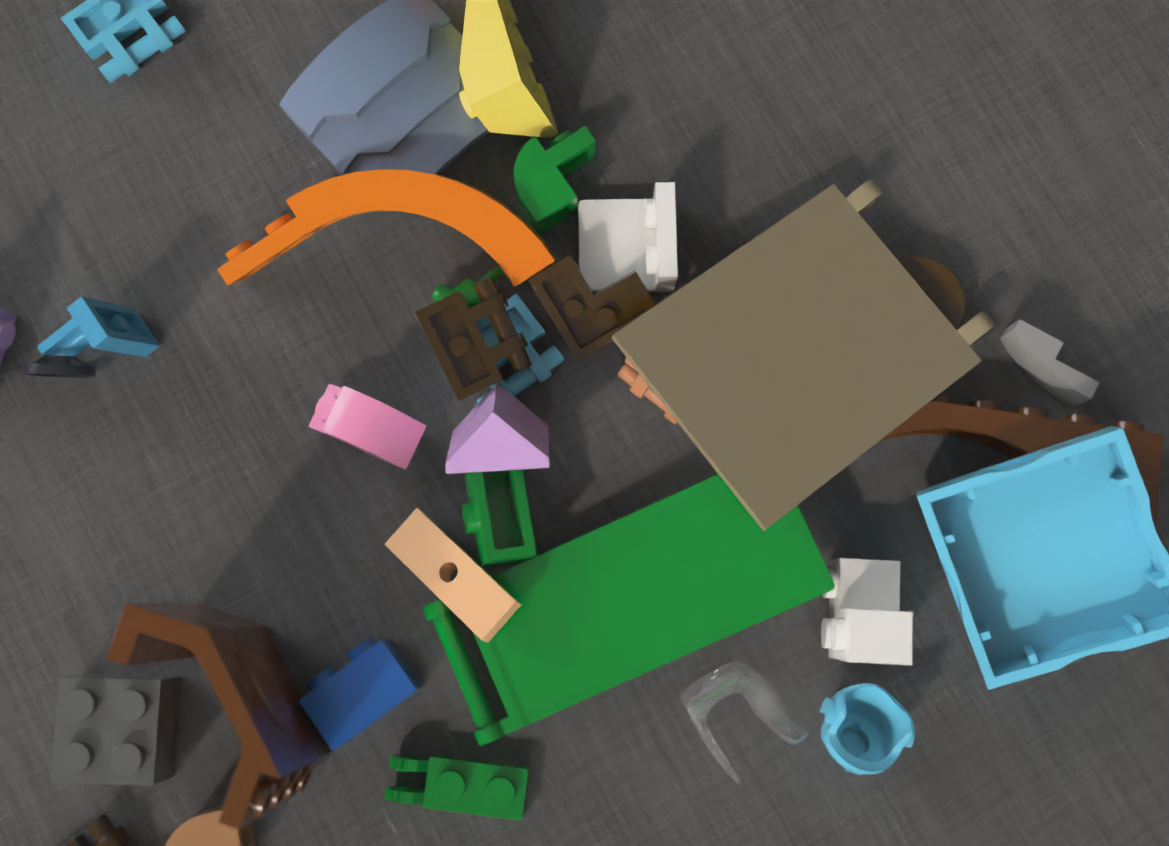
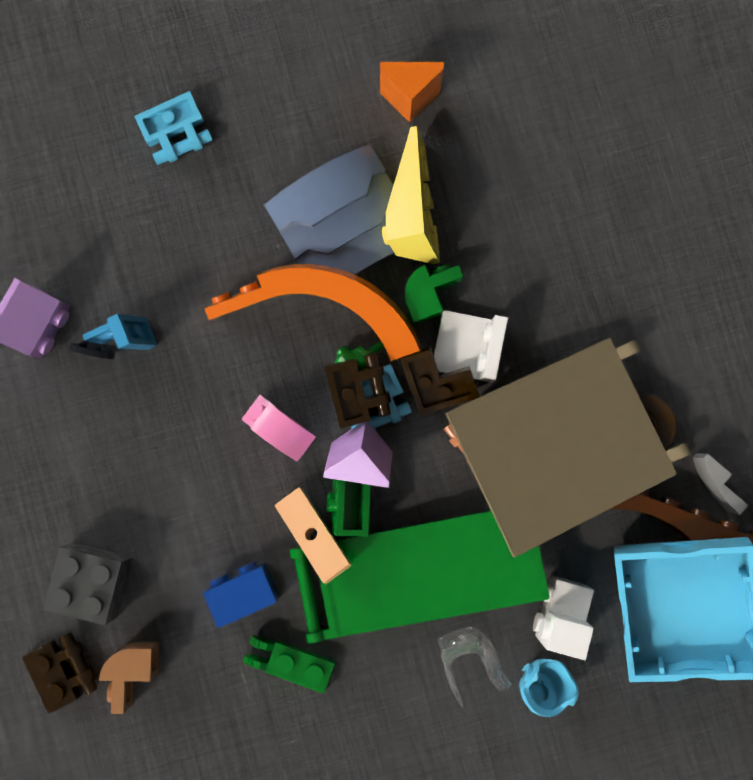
camera: 15 degrees right, 5 degrees up
(251, 685) = (176, 579): reddish brown panel -> none

